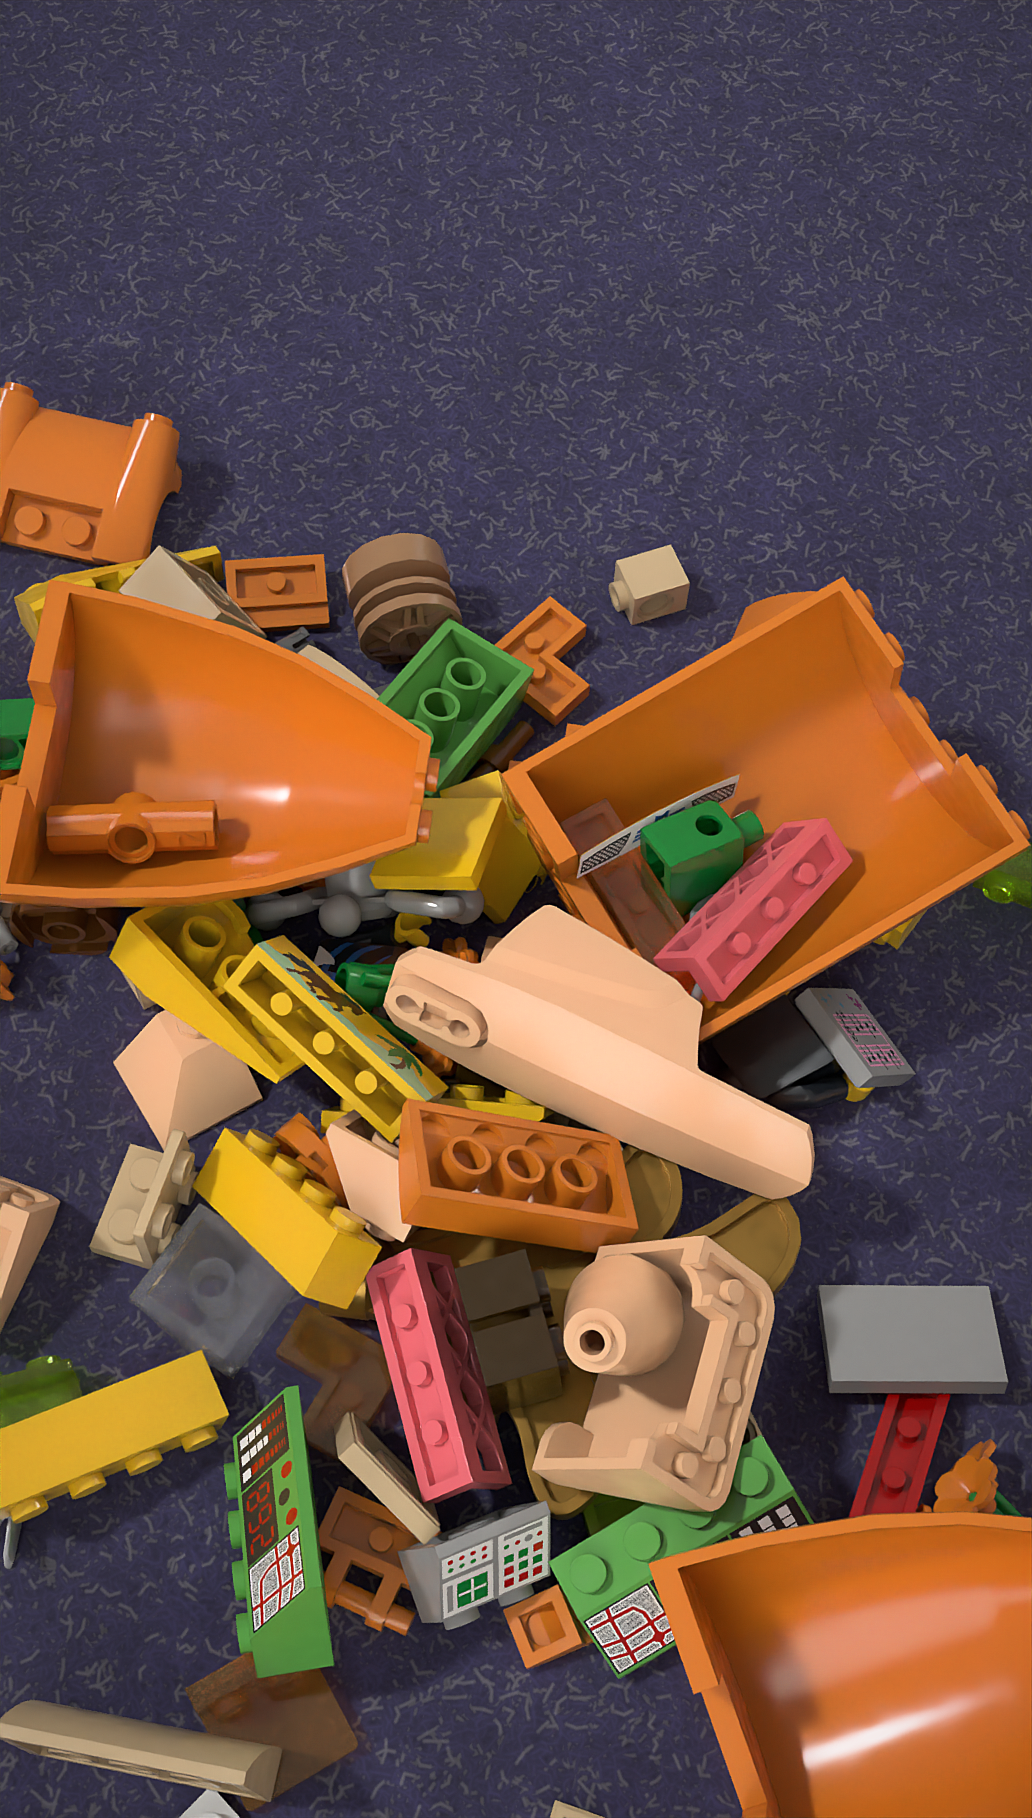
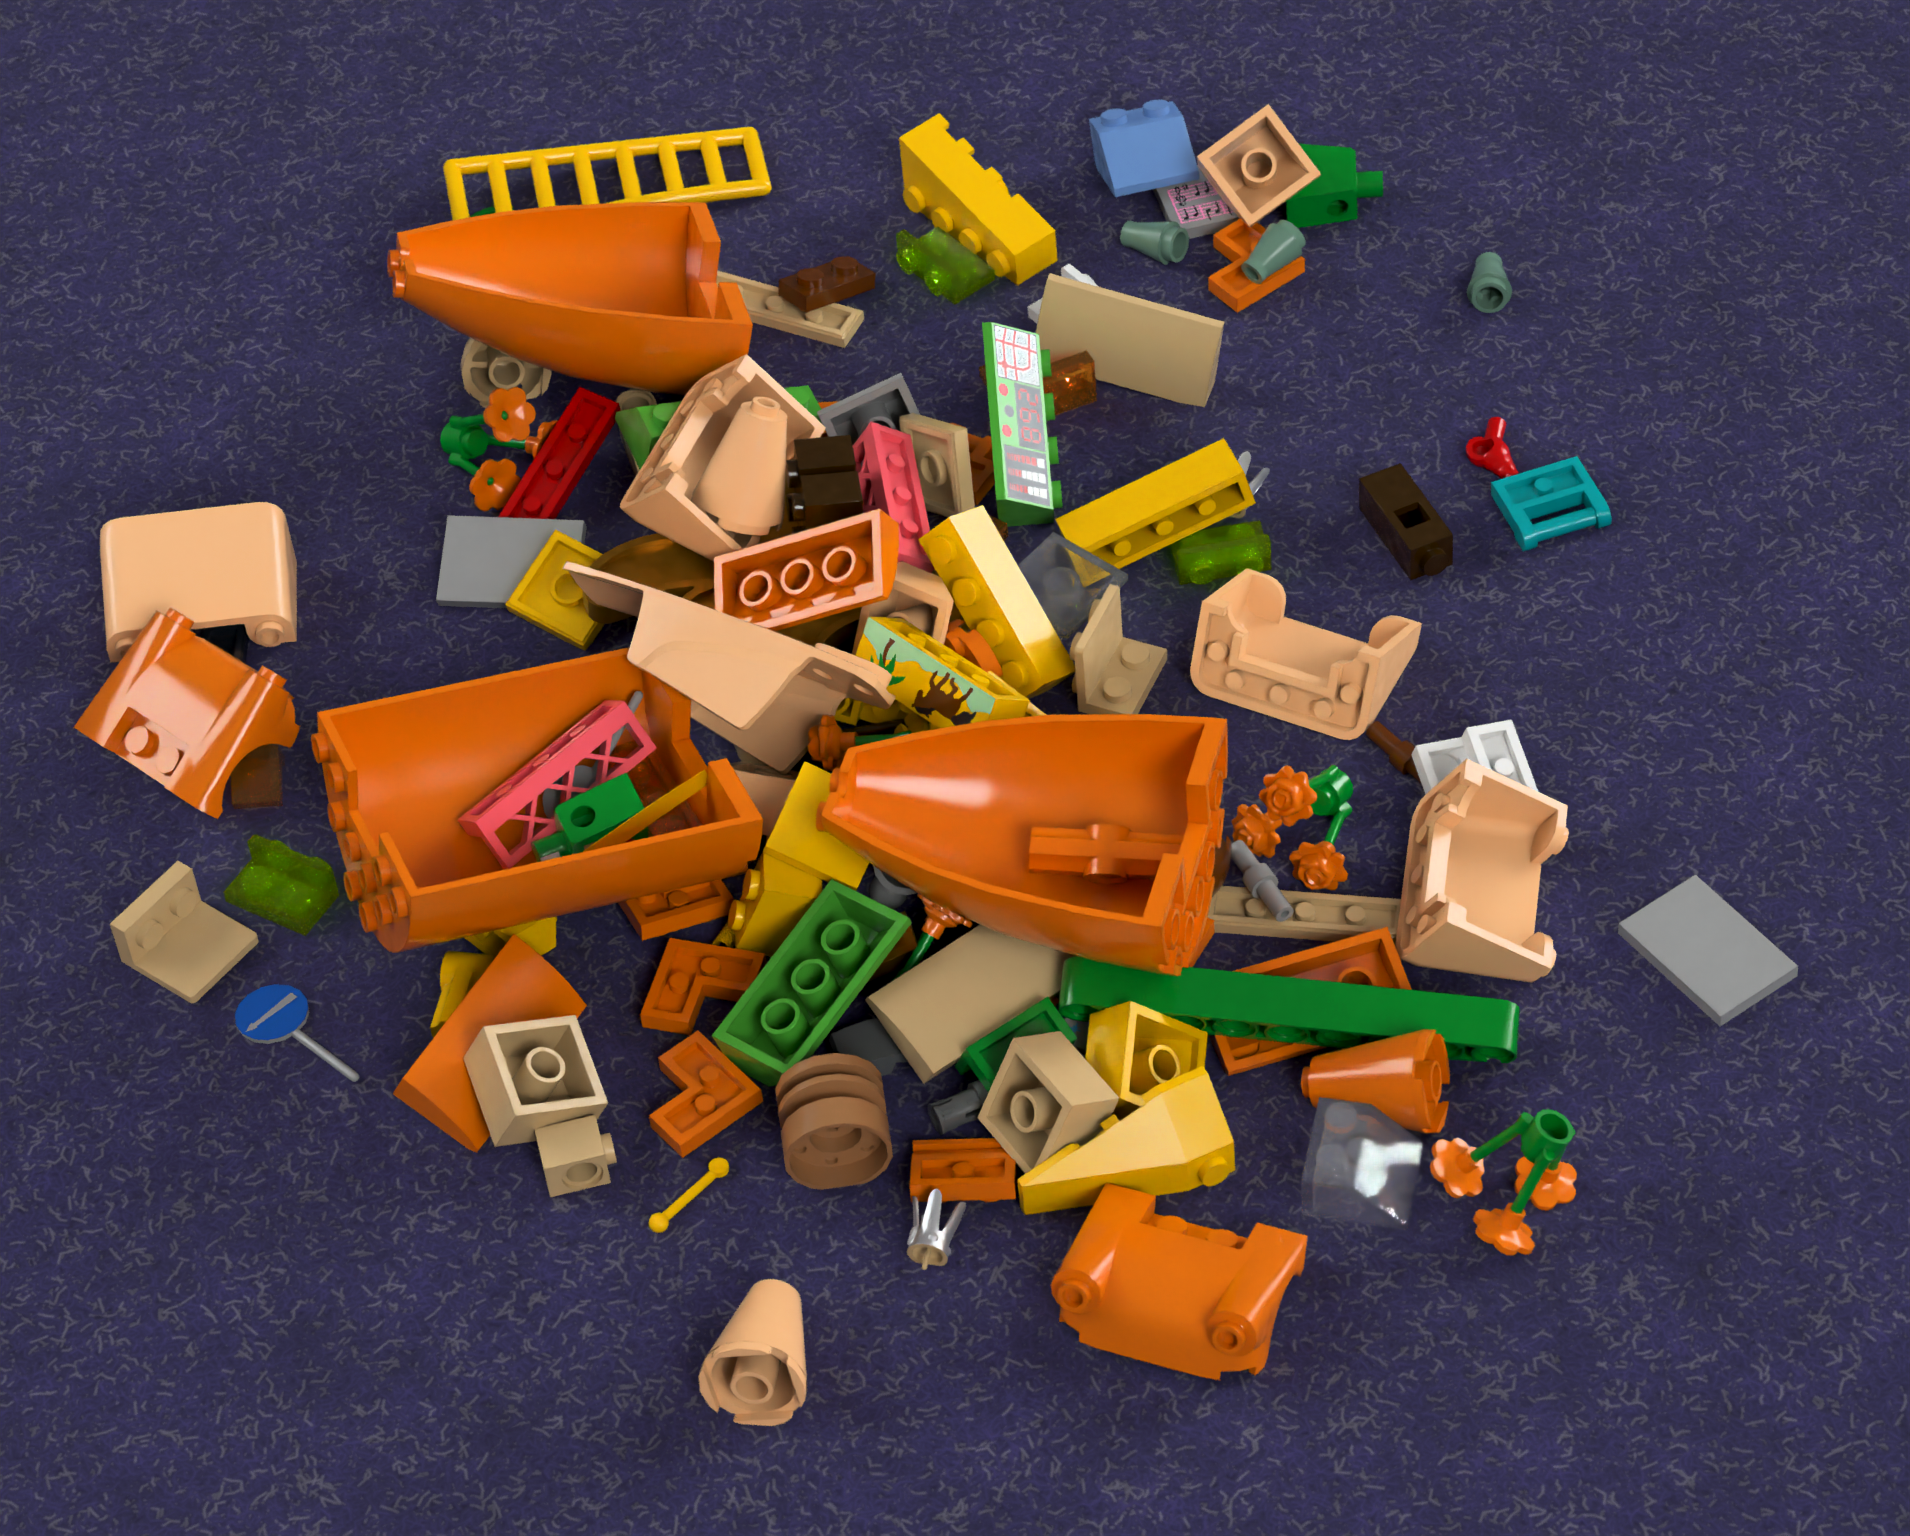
camera: 165 degrees left, 15 degrees down
(301, 522) = (925, 1239): none -> flat silver piece
(439, 399) = (759, 1358): none -> light nougat cone
(514, 601) = (717, 1167): none -> yellow hinge
(693, 610) = (533, 1077): none -> tan brick
(834, 1294) = (551, 595): none -> yellow tile
(986, 737) = (277, 1014): none -> blue piece

